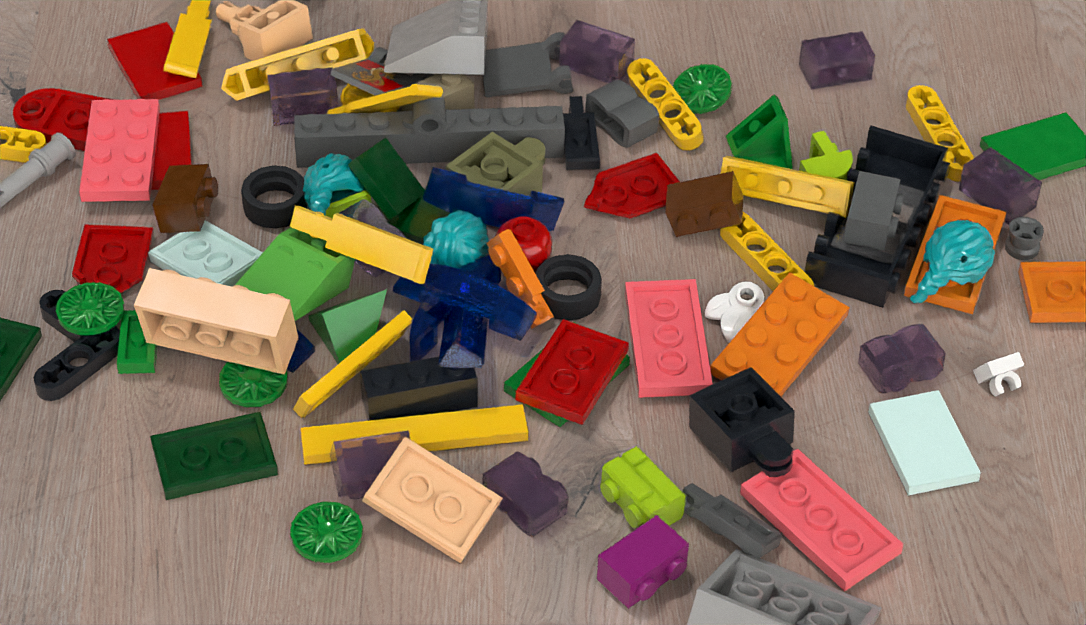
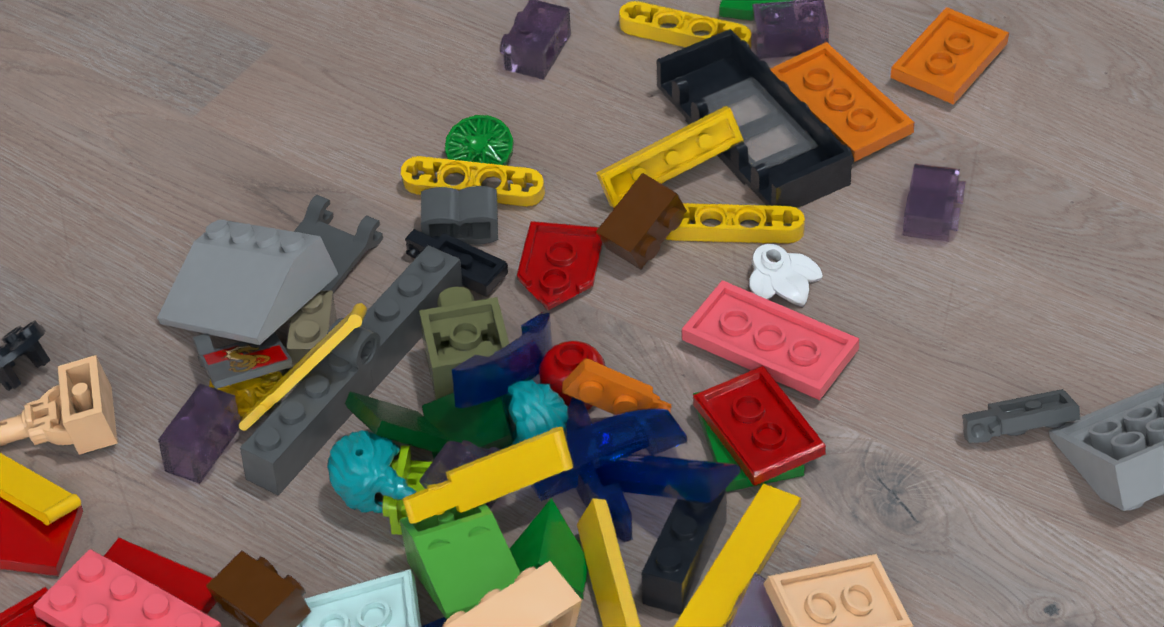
camera: 50 degrees left, 0 degrees up
(251, 77) = (148, 413): yellow brick -> none
(270, 179) = (320, 553): black tyre -> none
(528, 496) = (885, 531): clear purple brick -> none
(572, 268) = (657, 352): black tyre -> none
(596, 52) = (366, 187): clear purple brick -> none
(641, 489) = (941, 454): lime brick -> none
(642, 562) = (1029, 496): magenta brick -> none
(745, 423) = (930, 341): black brick -> none
(763, 136) = (589, 138): green slope -> none
(782, 334) = (842, 267): orange plate -> none
(823, 521) = (1065, 355): coral plate -> none
(826, 158) = (659, 115): lime brick -> none
(872, 211) = (764, 116): dark grey brick -> none
(924, 442) = (1029, 245): light aqua tile -> none
(956, 253) = (865, 91): teal hair -> none
(998, 370) = (999, 152): white tile -> none
(1024, 238) = (861, 49): dark grey wheel -> none

